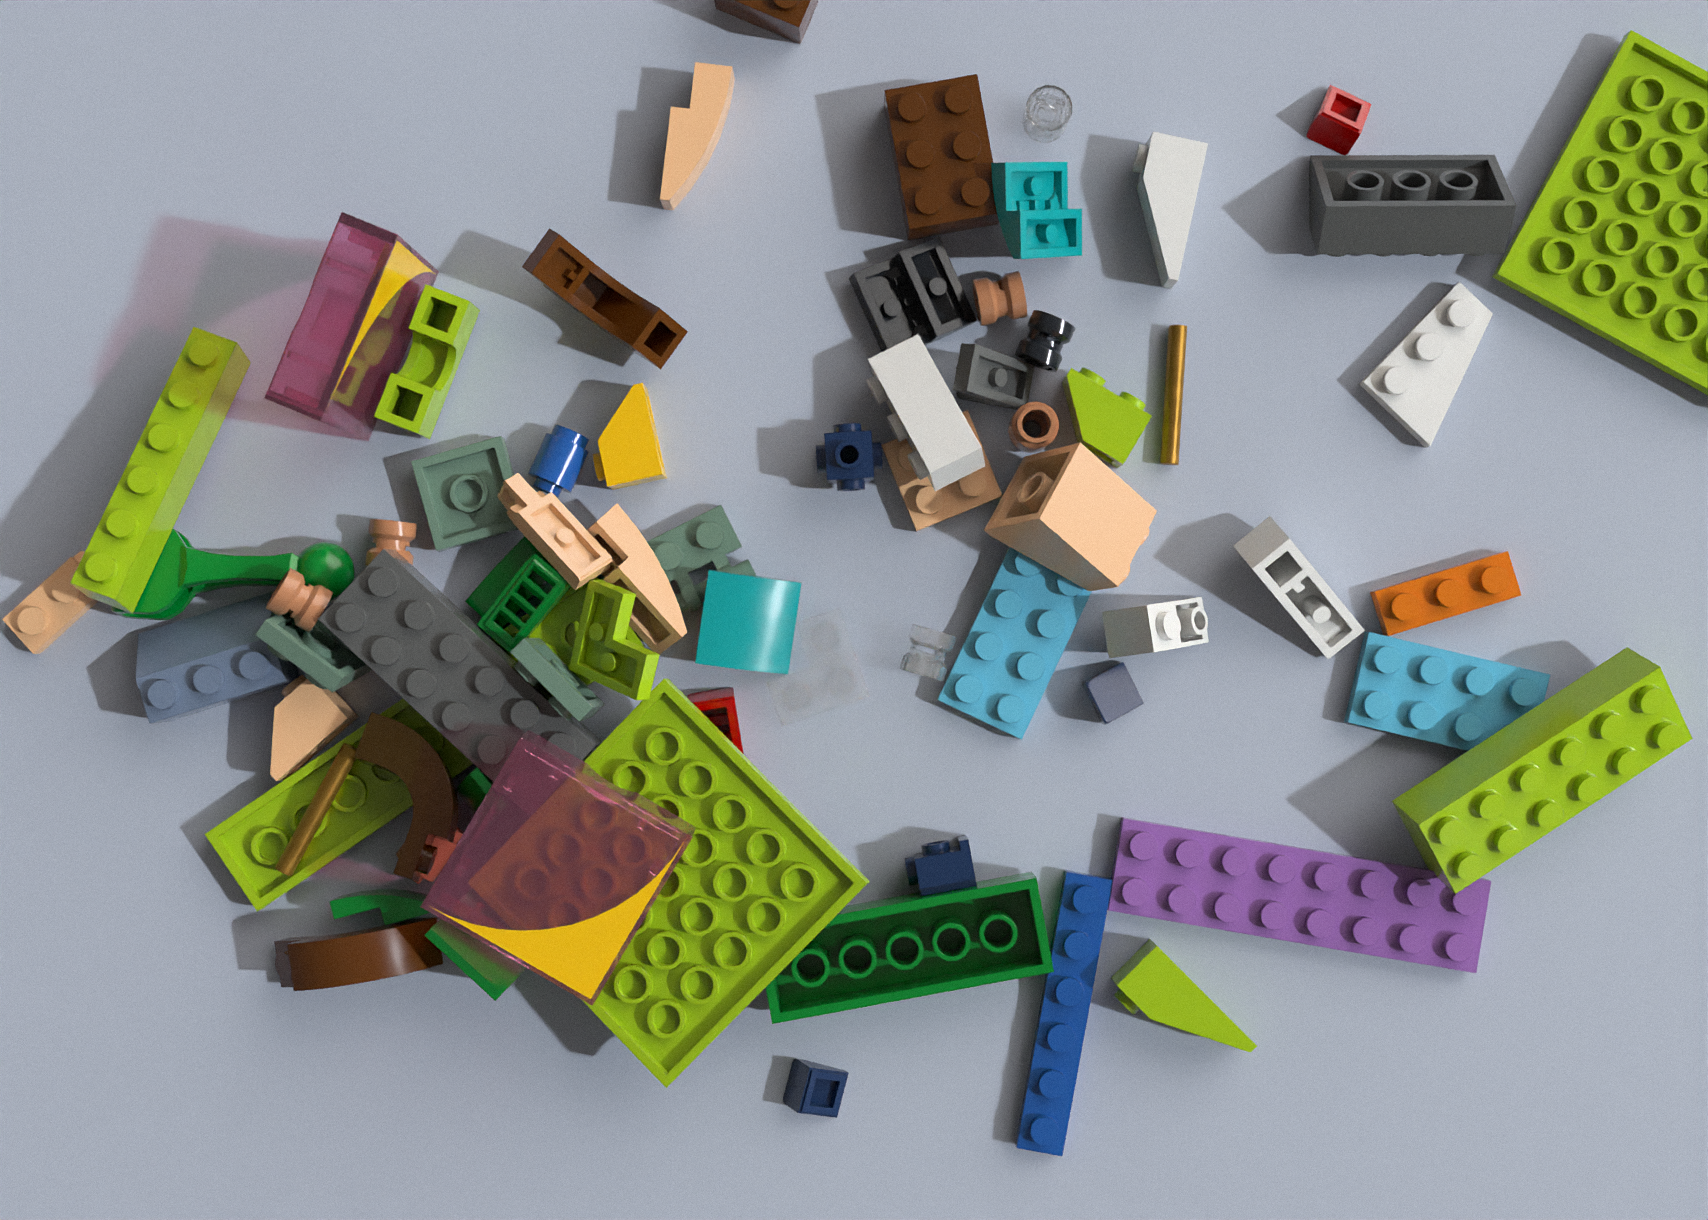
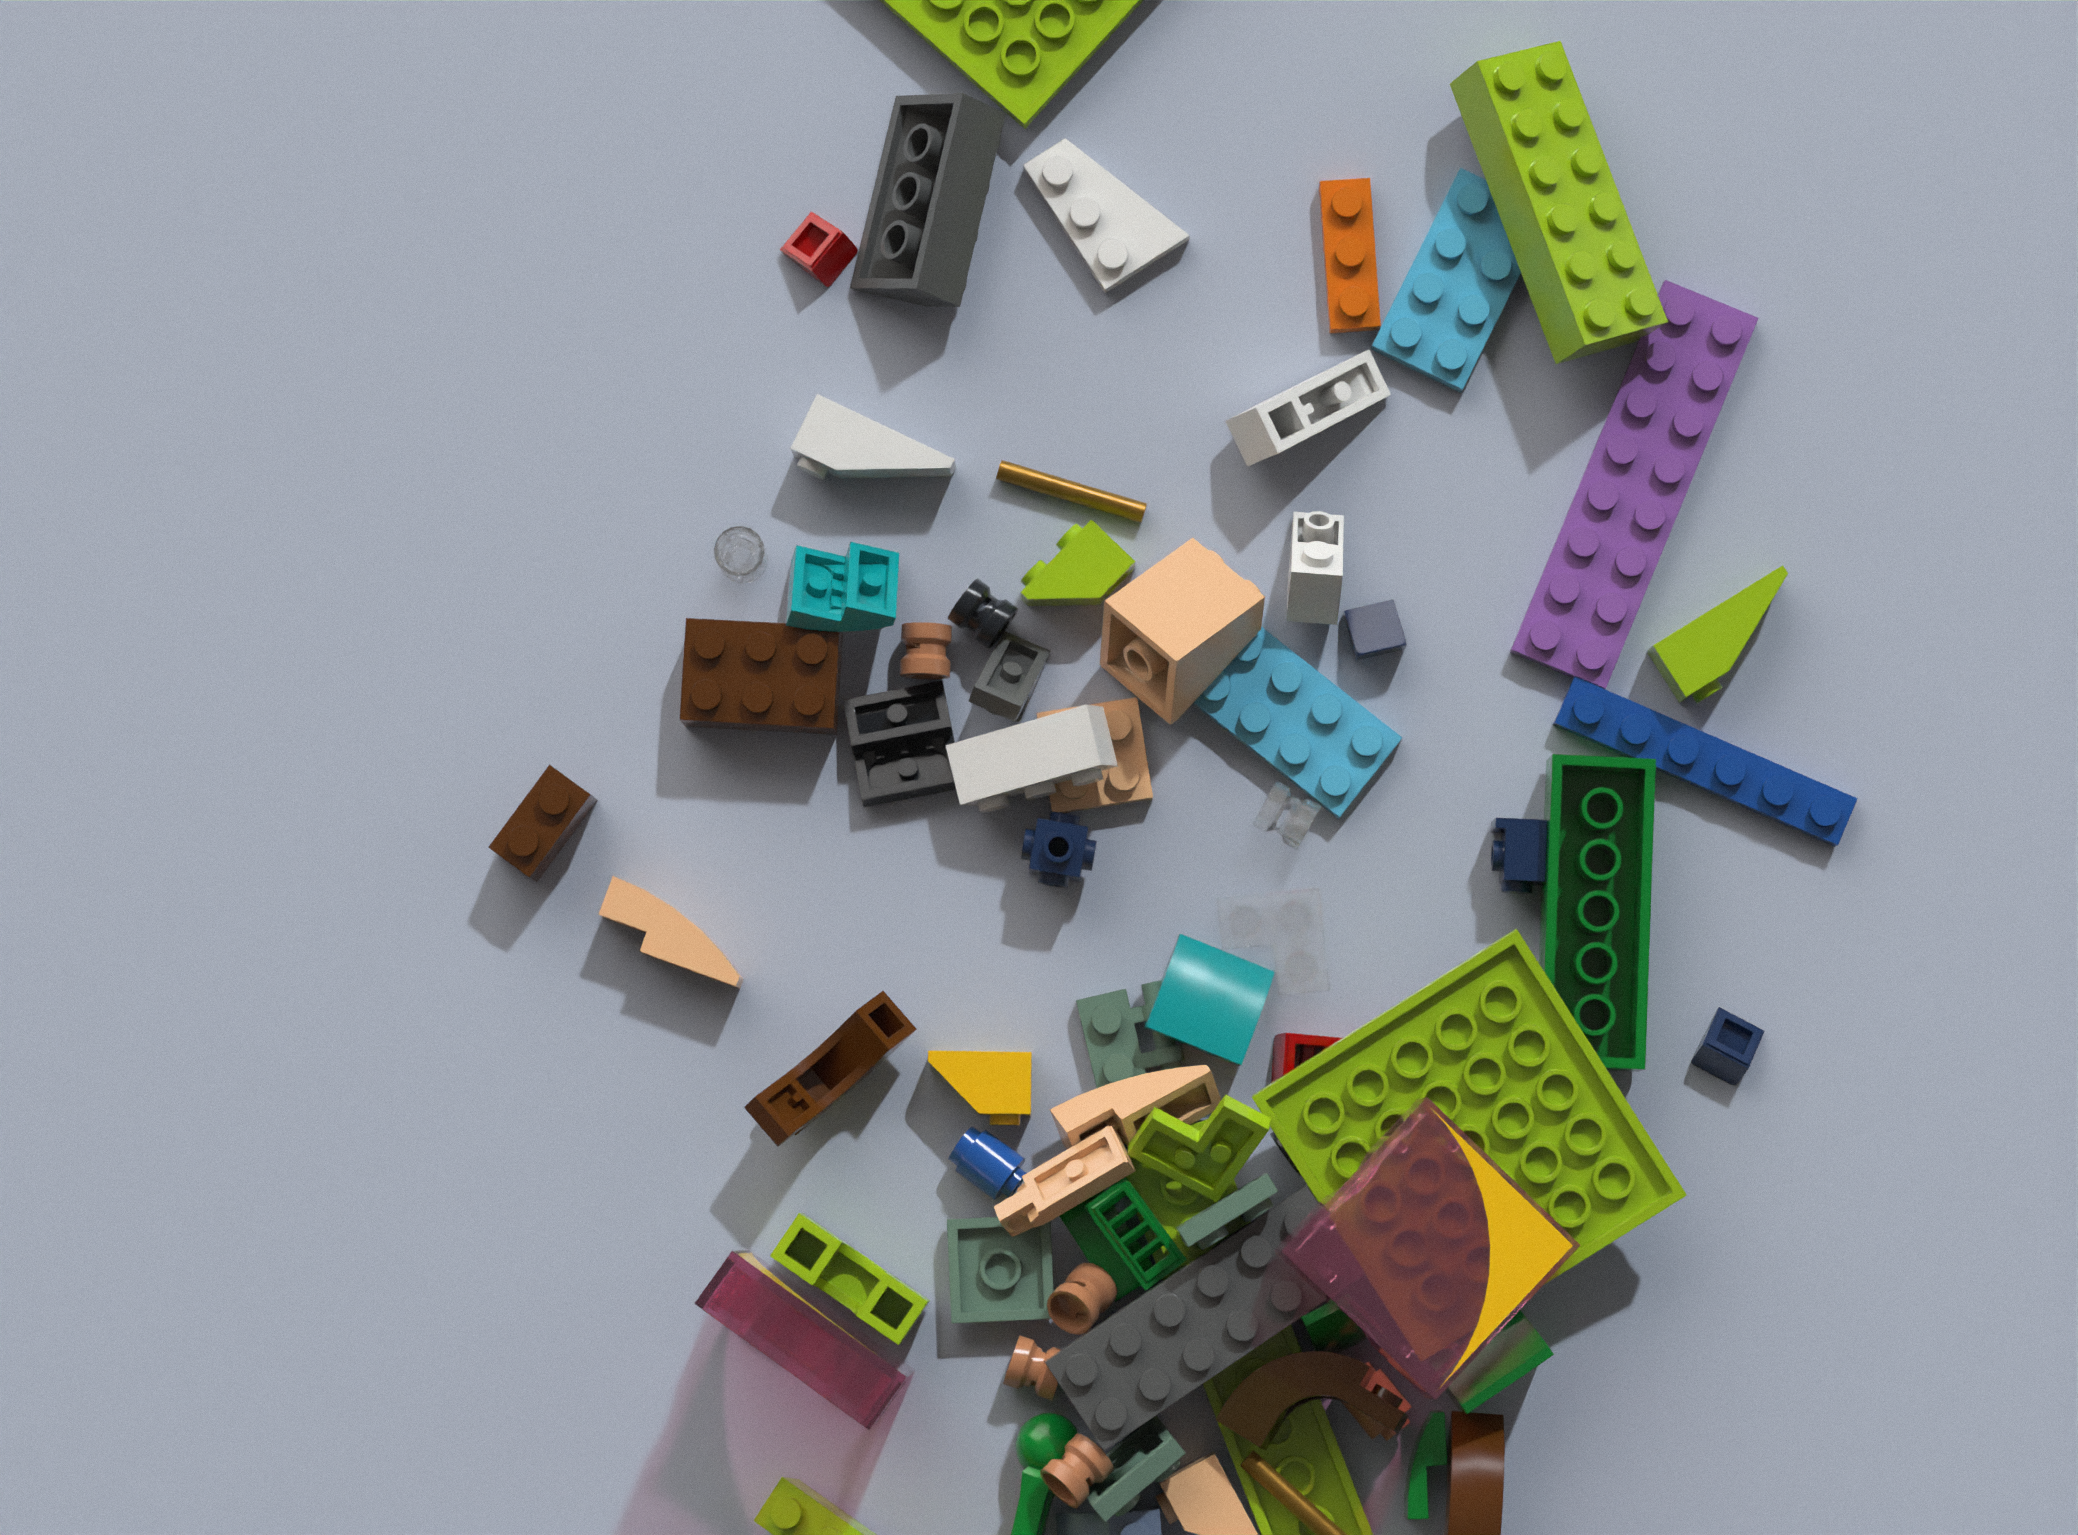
camera: 70 degrees left, 5 degrees down
(454, 568) = (1081, 1298): none -> nougat wheel
(1043, 416) = (1072, 631): nougat brick -> none

